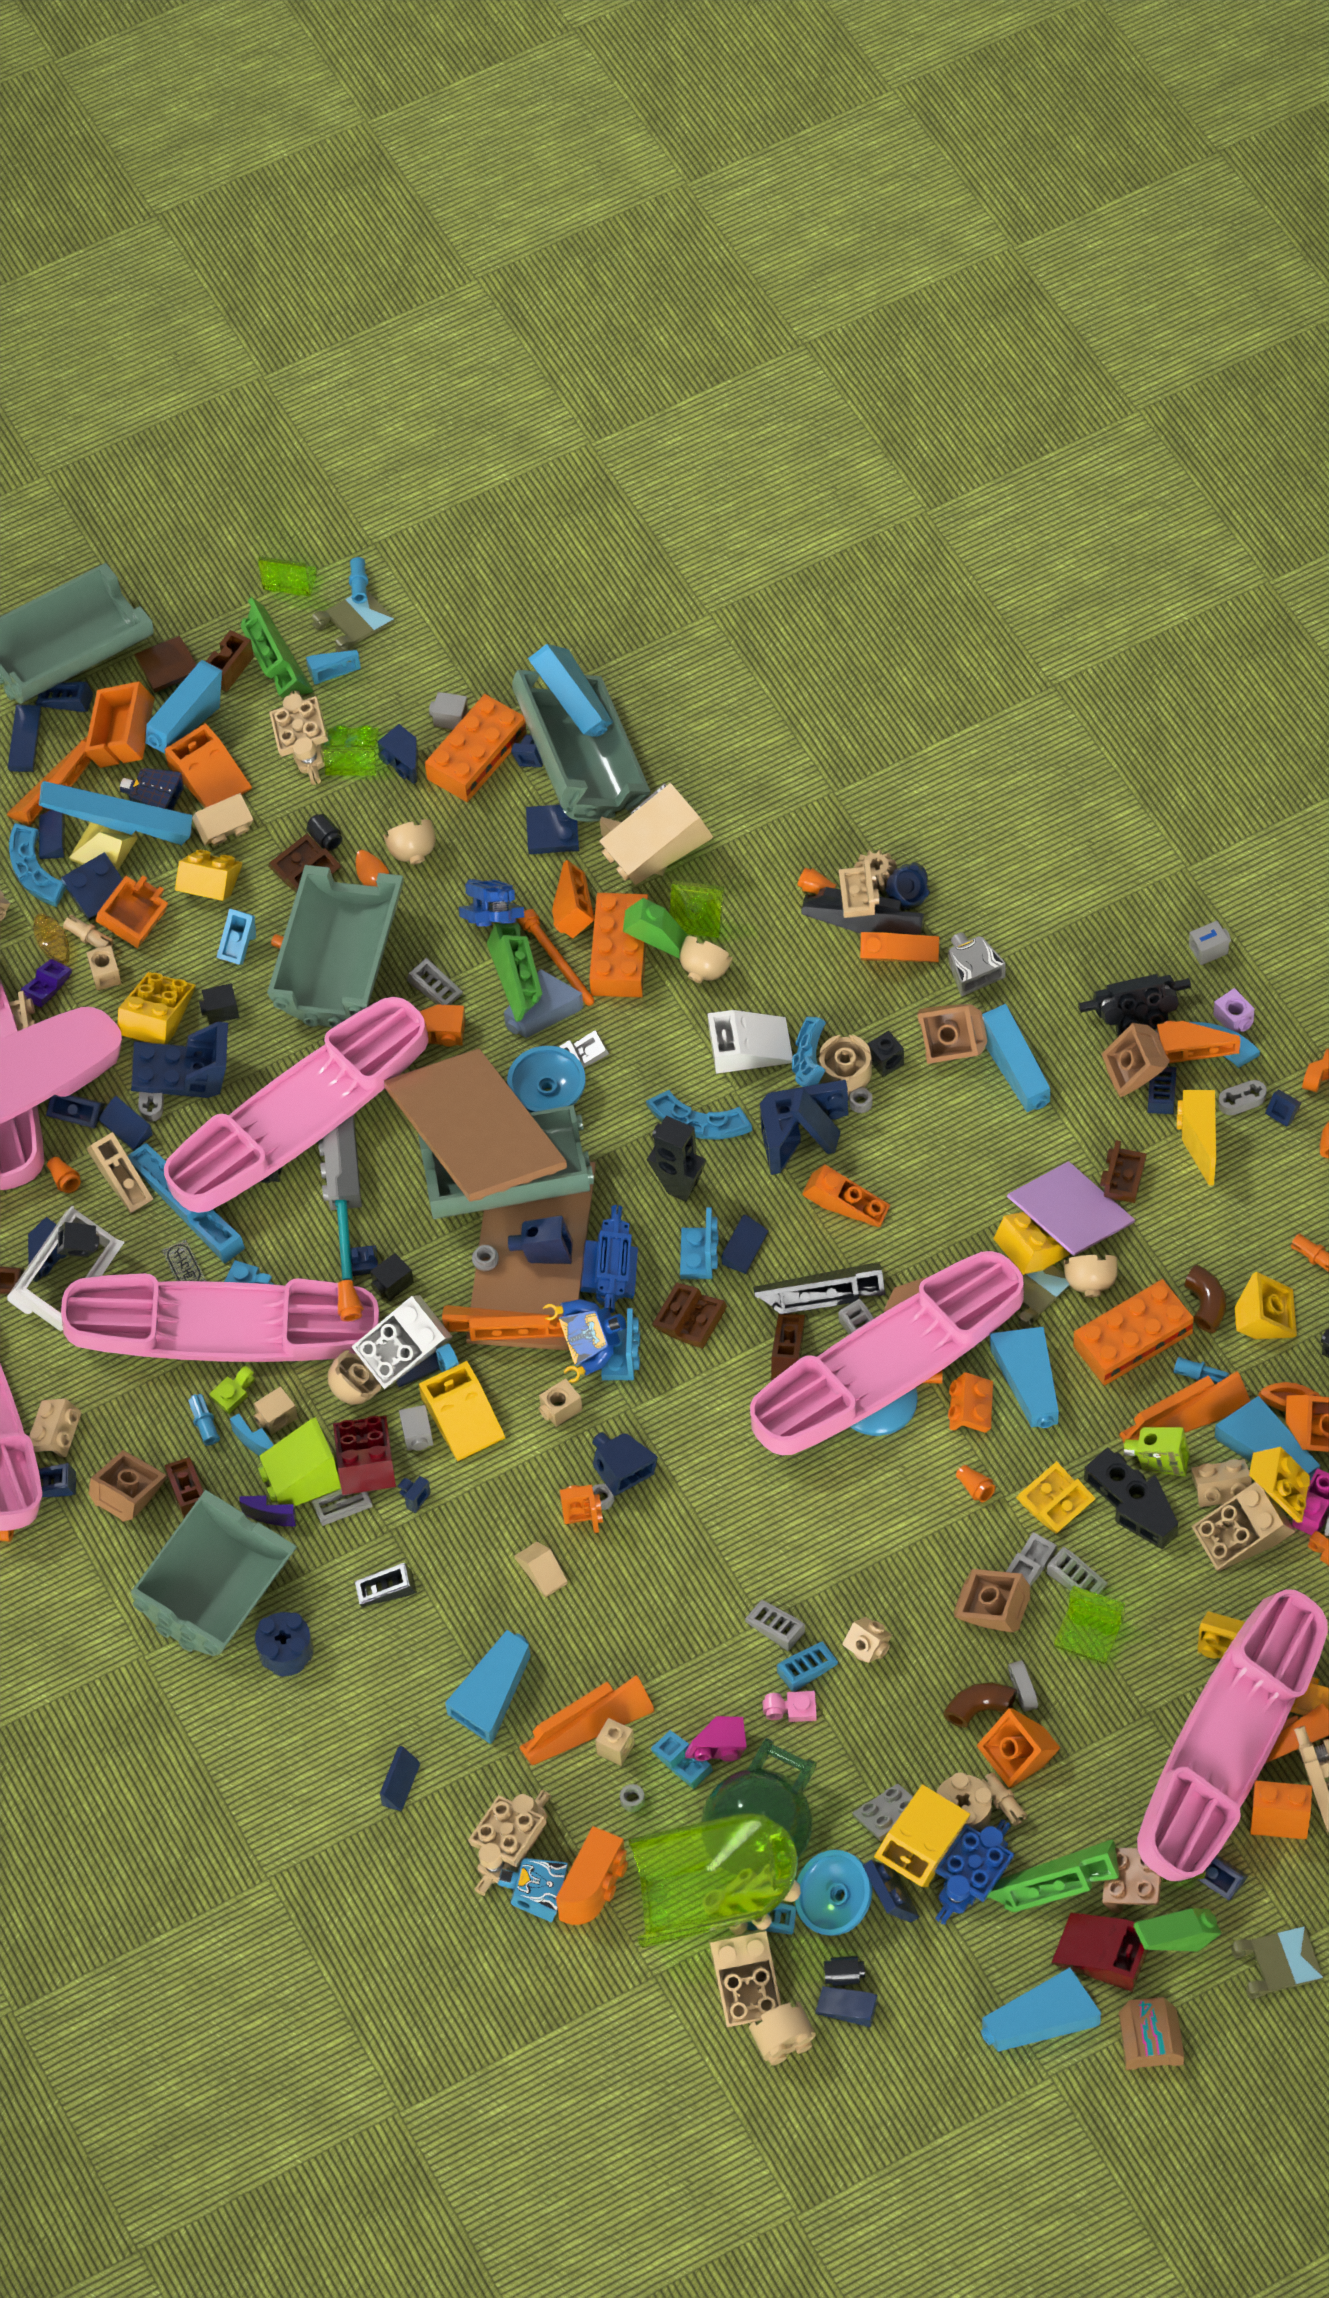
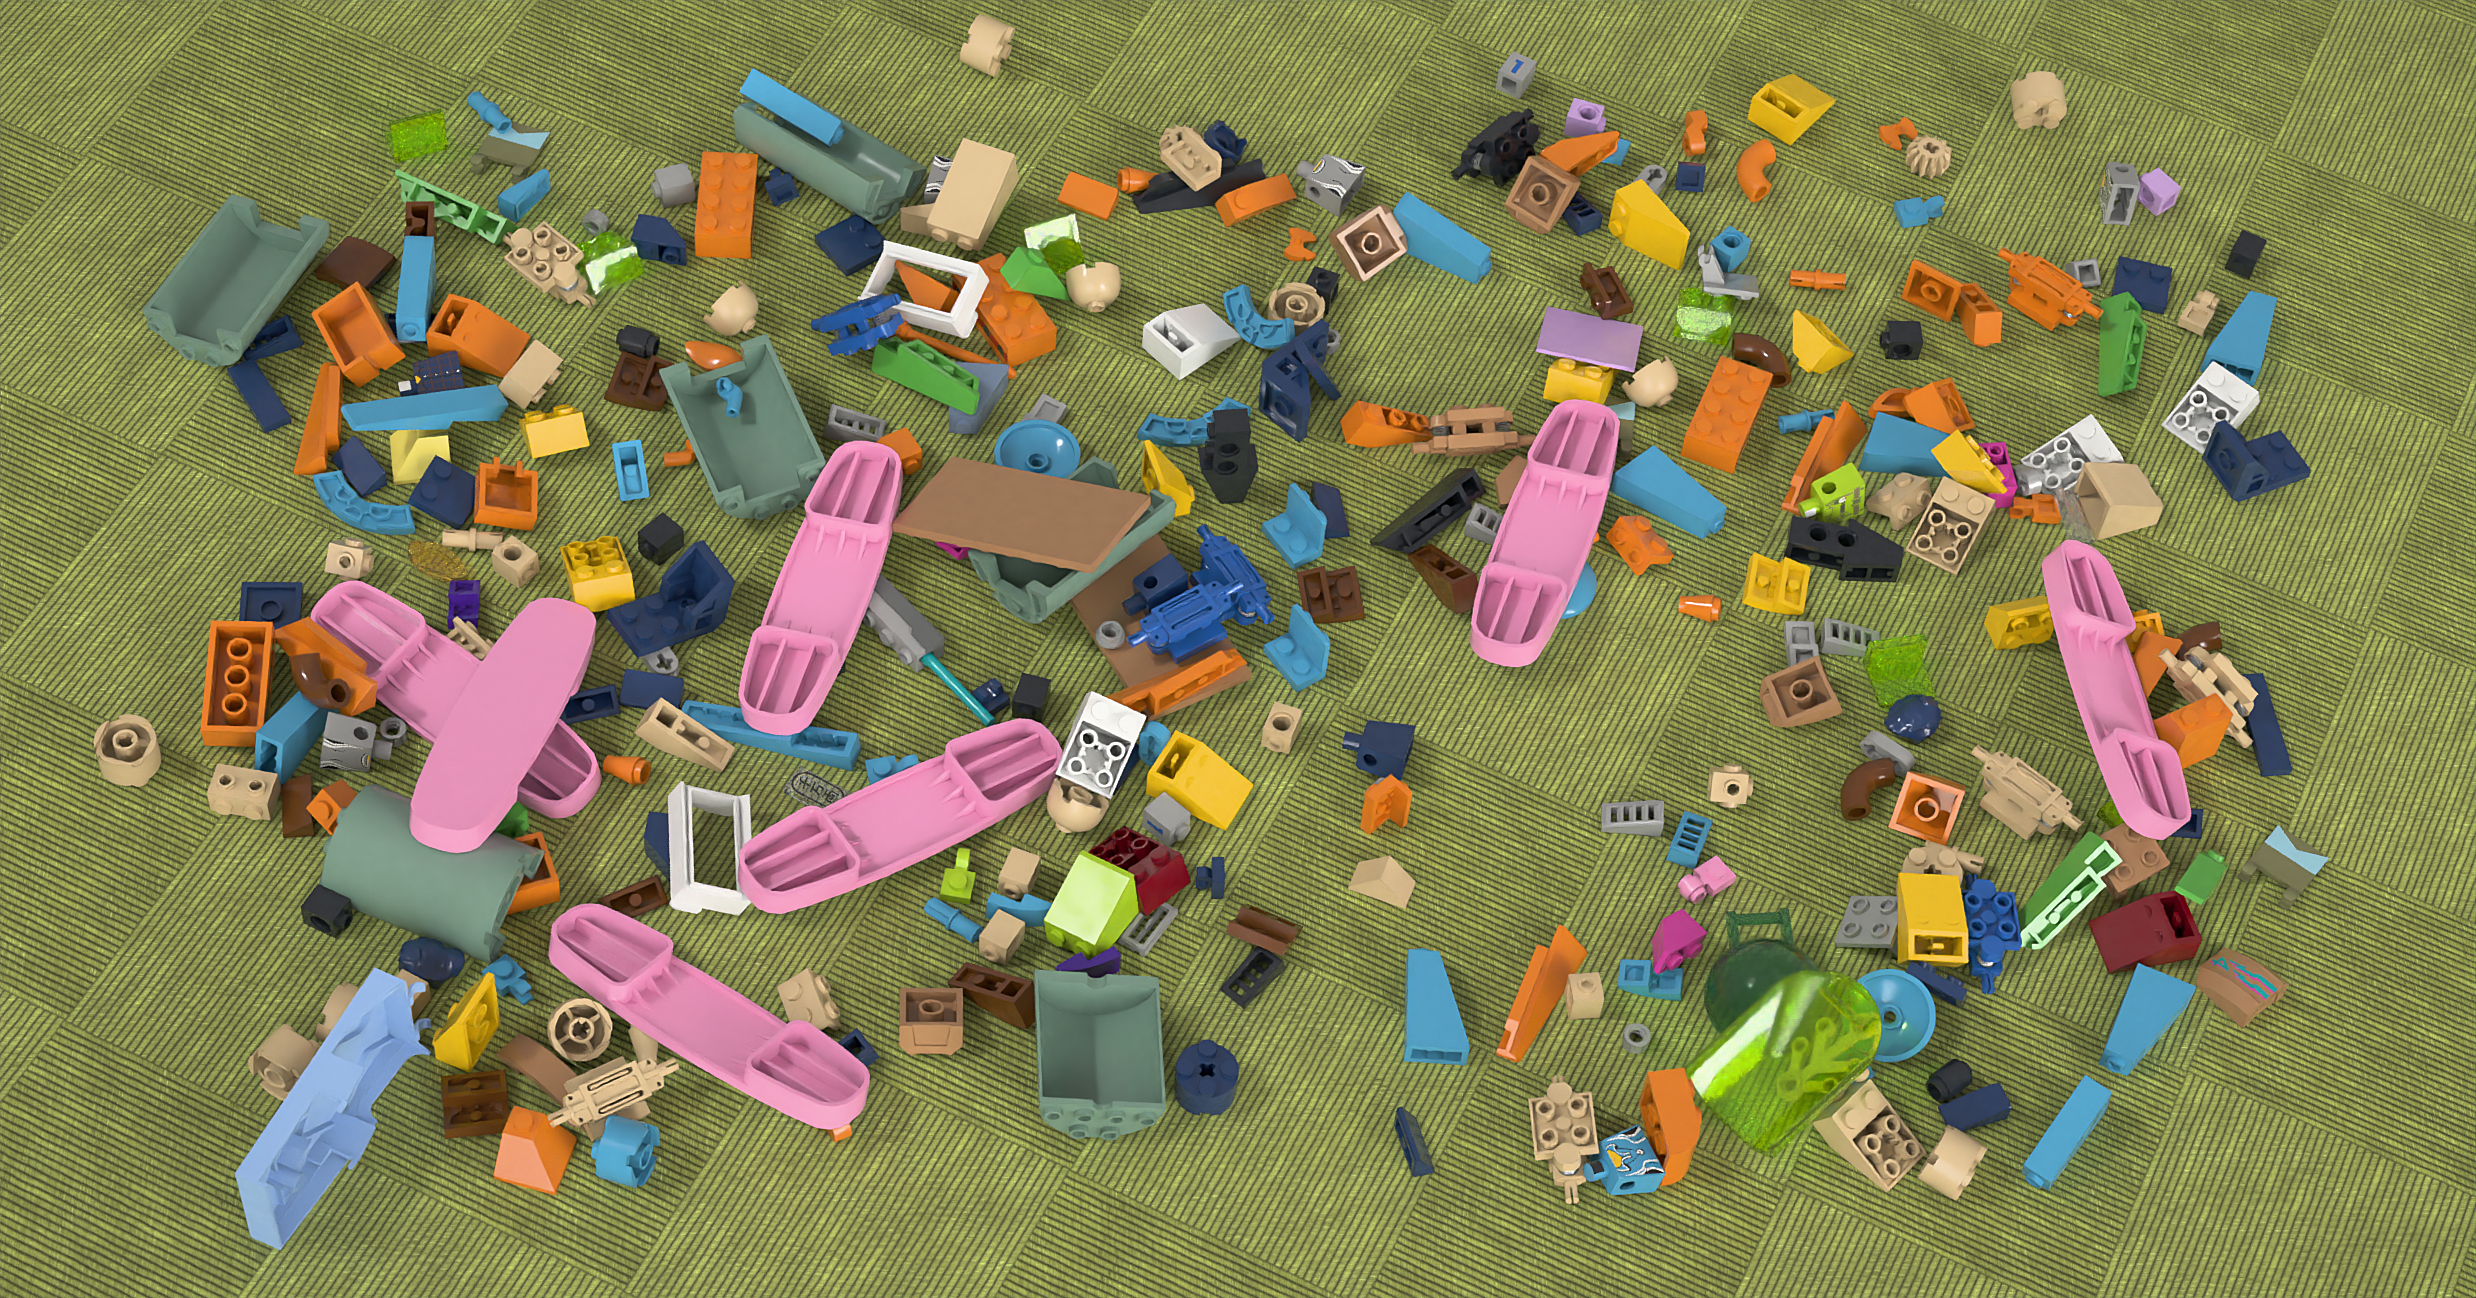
camera: 45 degrees left, 5 degrees down
(77, 1239) = (712, 809): black brick -> none
(224, 1452) = (1001, 937): none -> tan brick
(348, 1302) = (1020, 737): orange cone -> none
(354, 911) = (731, 394): none -> dark azure arm
(368, 714) = (595, 222): none -> light grey axle
(418, 1554) = (1264, 929): none -> reddish brown slope
(542, 1277) = (1187, 621): none -> blue piece
(575, 930) = (963, 315): none -> white piece
(589, 1334) = (1267, 650): torso -> none
(625, 1156) = (1166, 478): none -> yellow slope
(767, 879) = (1089, 196): none -> orange slope
(782, 705) = (987, 44): none -> tan brick
(893, 1226) = (1481, 423): none -> medium nougat piece
(896, 2065) = (2066, 1133): none -> dark azure slope
(899, 1008) = (1295, 250): none -> orange piece
(1067, 1668) = (1914, 717): none -> dark blue hair
(1099, 1780) = (2022, 796): none -> tan piece
(1189, 1235) = (1703, 316): none -> clear neon green bracket
(1228, 1215) = (1720, 283): none -> light grey plate
(1257, 1198) = (1730, 248): none -> dark azure brick

